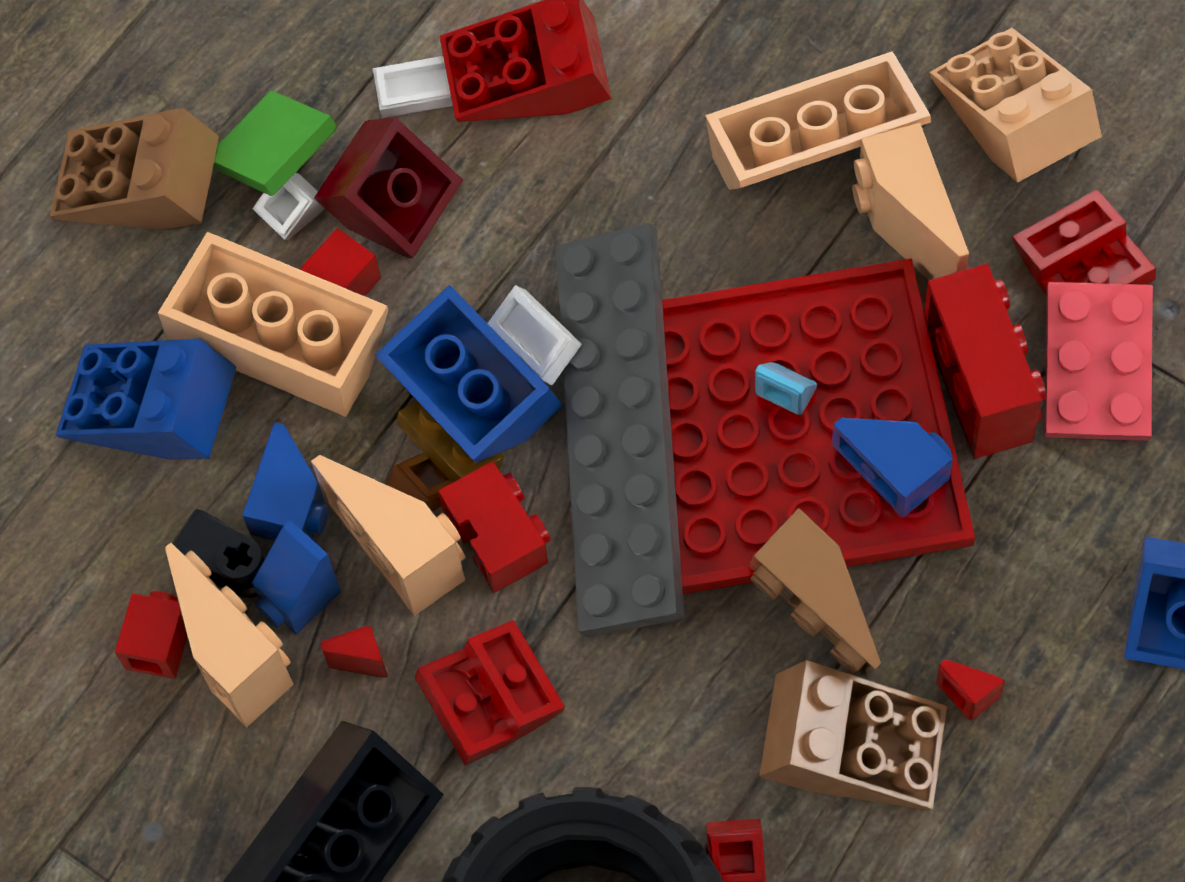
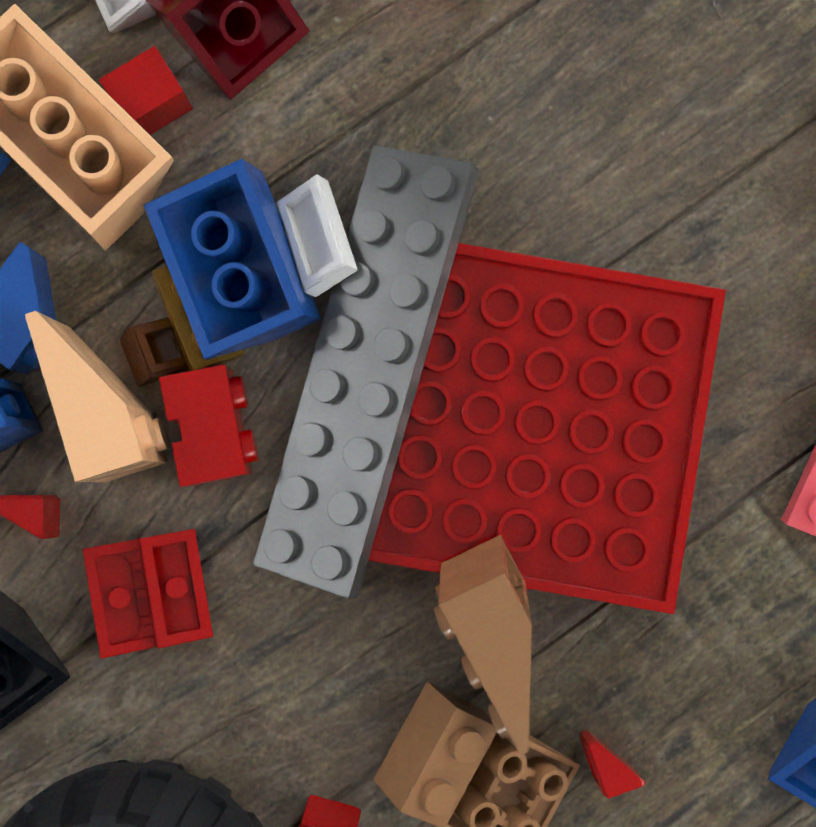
camera: 10 degrees right, 20 degrees up
(783, 387) = (548, 387): medium azure slope -> none
(812, 120) = (688, 108): light nougat slope -> none
(895, 458) = (629, 516): blue slope -> none
(908, 201) = (750, 238): light nougat slope -> none
(983, 360) = (759, 435): red brick -> none

